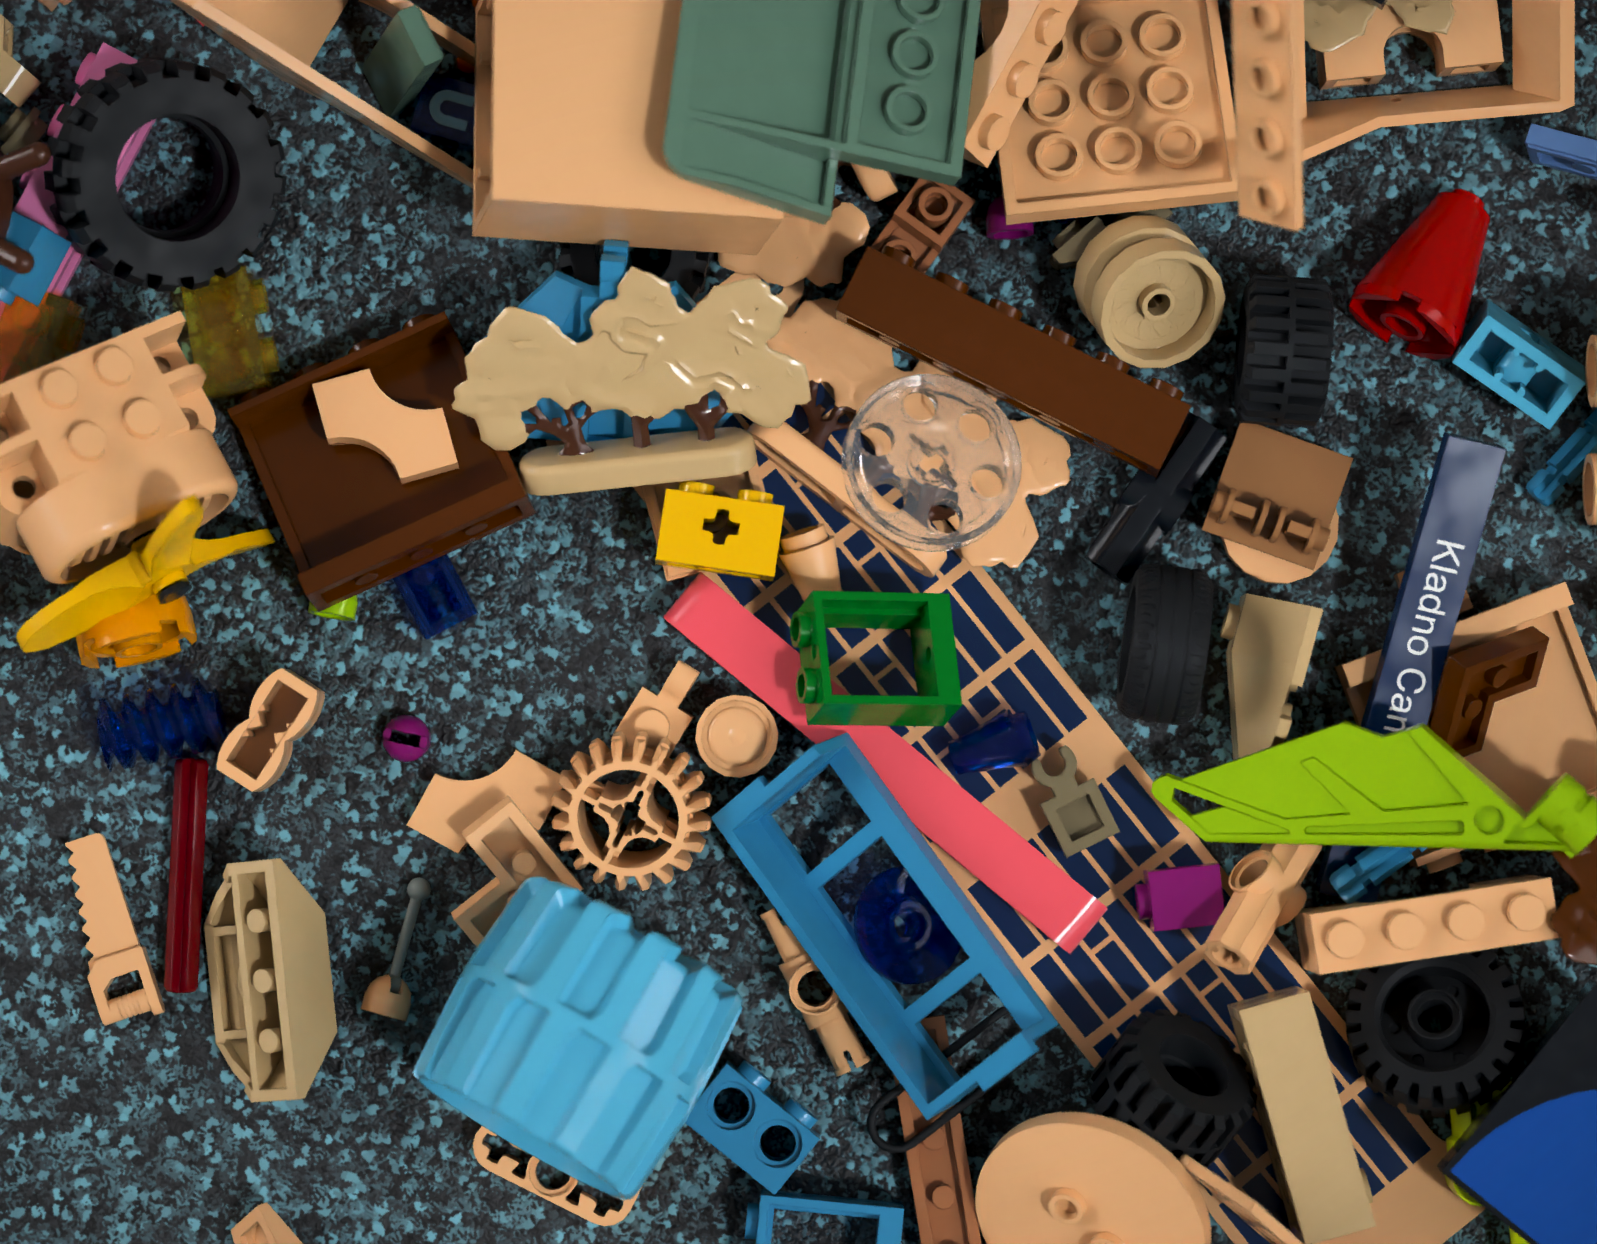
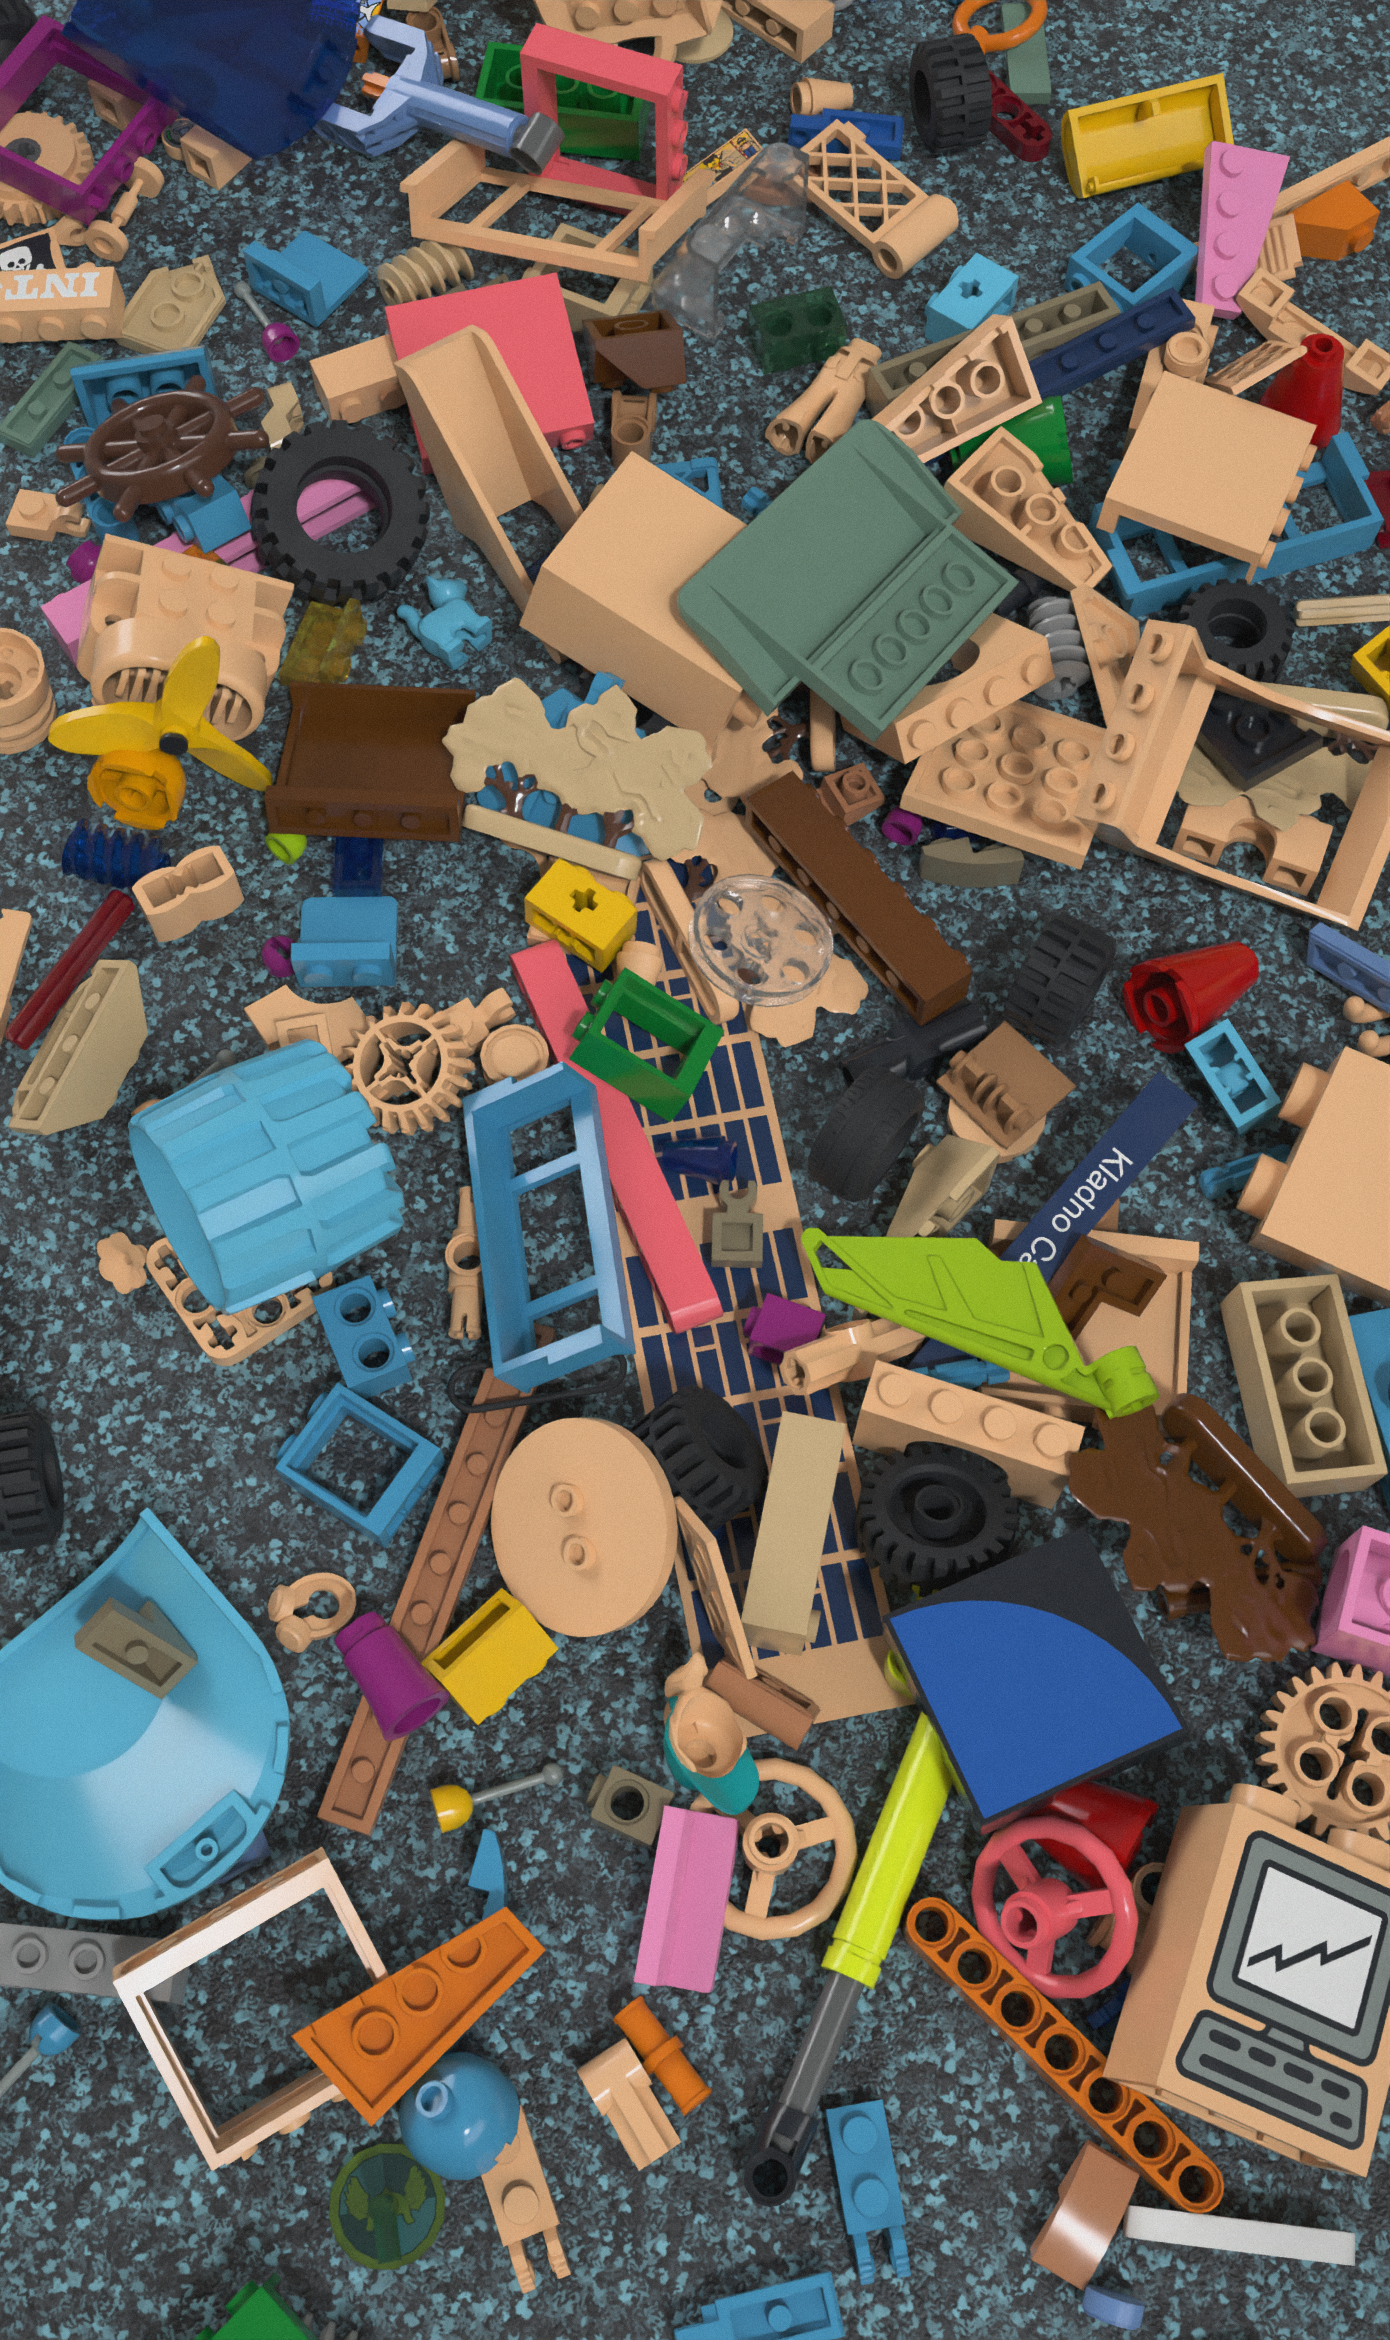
camera: 25 degrees right, 20 degrees down
(356, 225) = (450, 622): none -> medium azure animal
(363, 415) = (400, 755): light nougat tile -> none
(402, 61) = (541, 515): sand green tile -> none
(454, 1174) = (122, 1262): none -> light nougat plant
(472, 688) = (347, 942): none -> dark azure bracket
(925, 947) = (561, 1226): clear blue dish -> none
(1149, 291) = (974, 925): tan wheel -> none

